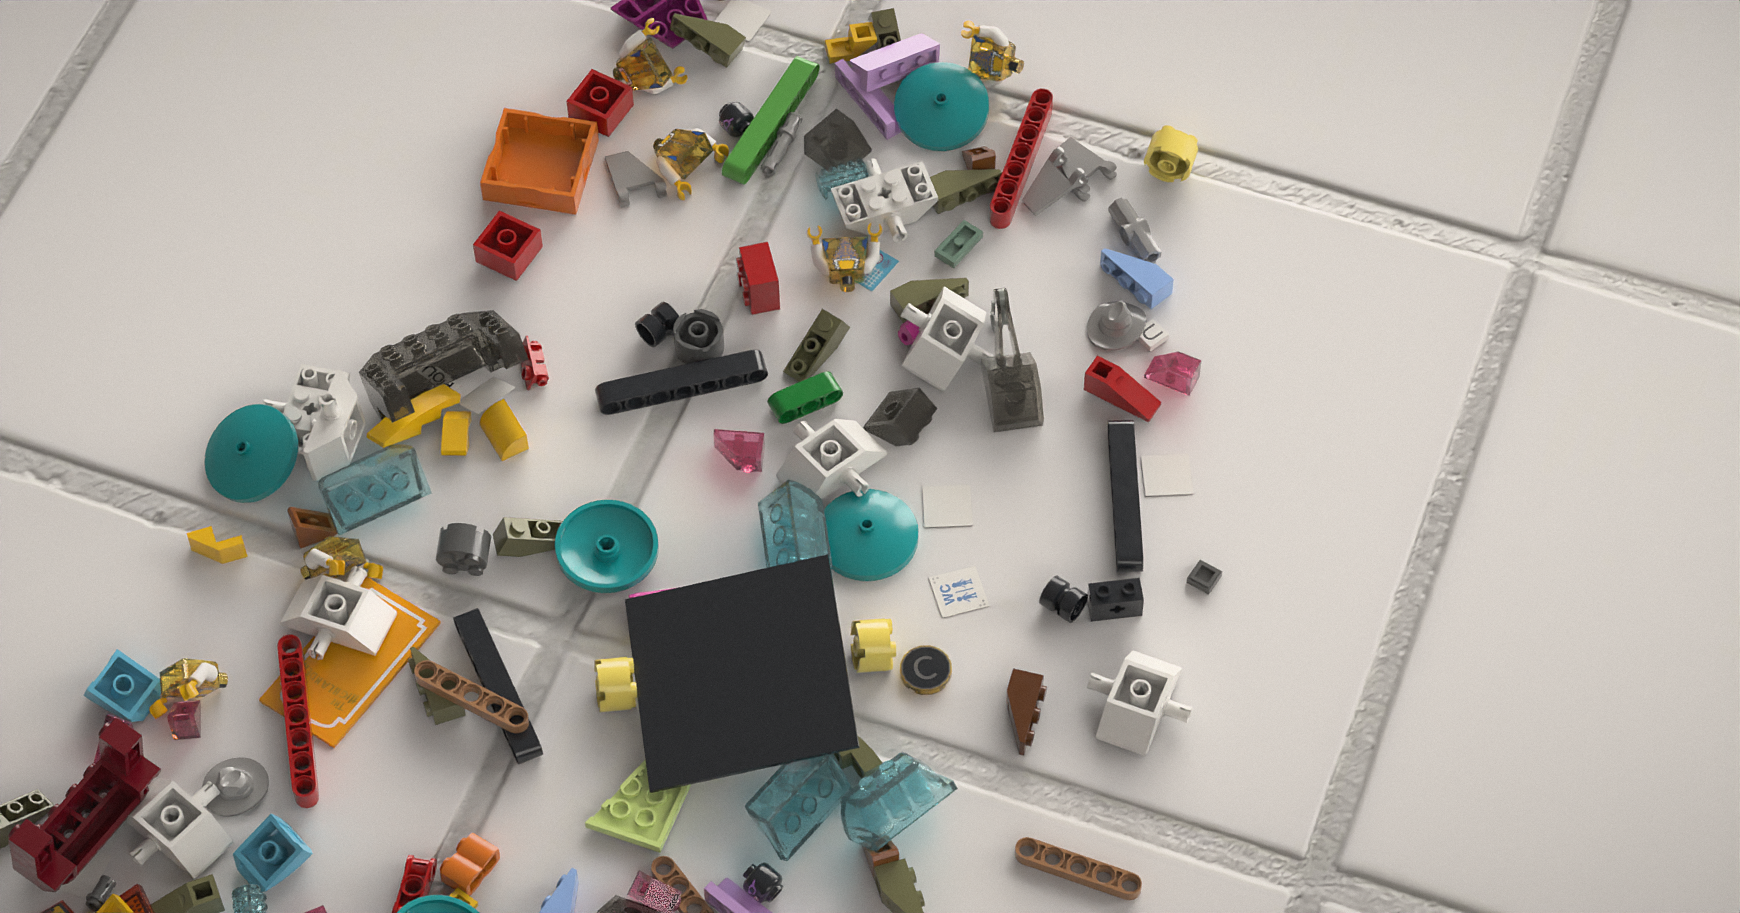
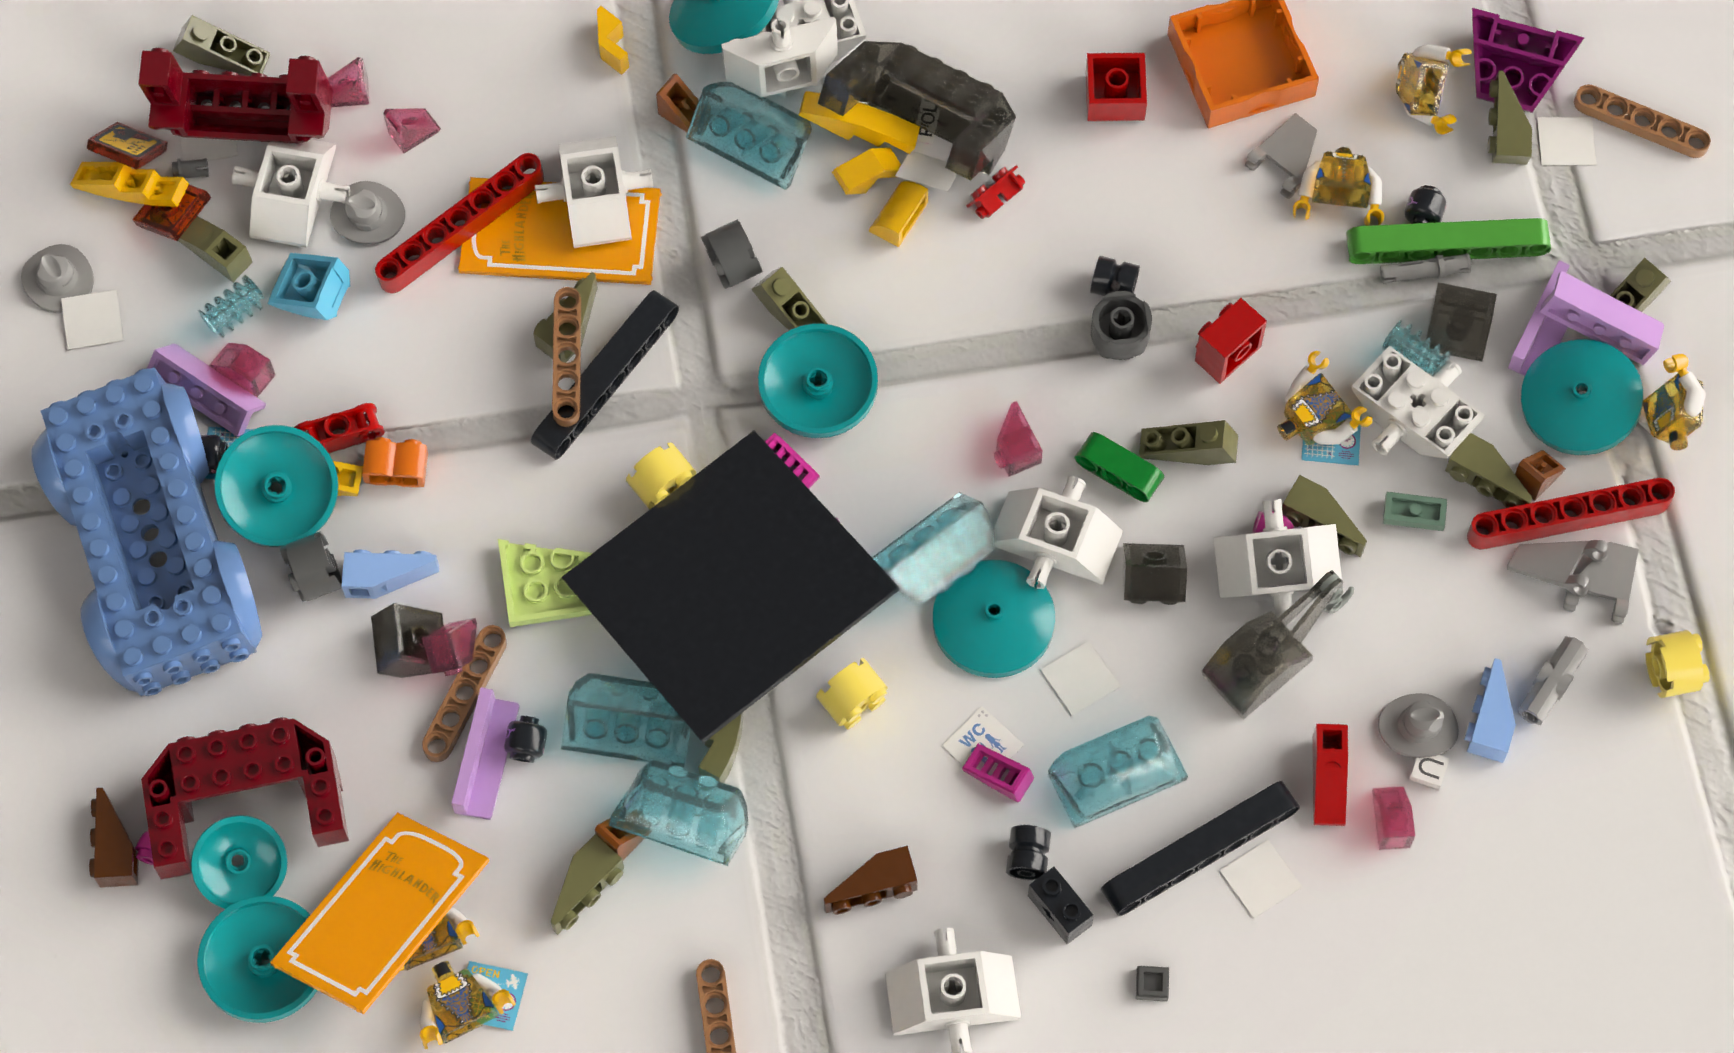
camera: 60 degrees right, 10 degrees up
(125, 688) = (408, 58): medium azure slope -> none
(187, 680) = (443, 104): torso -> none
(336, 557) = (652, 149): torso -> none
(601, 101) = (1351, 68): red brick -> none
(681, 382) = (1062, 340): black beam -> none
(859, 39) = (1600, 264): yellow slope -> none
(925, 670) = (866, 762): black tile -> none
(982, 583) = (1019, 784): none -> dark pink slope
(1036, 518) = (1116, 770): none -> clear light blue windscreen

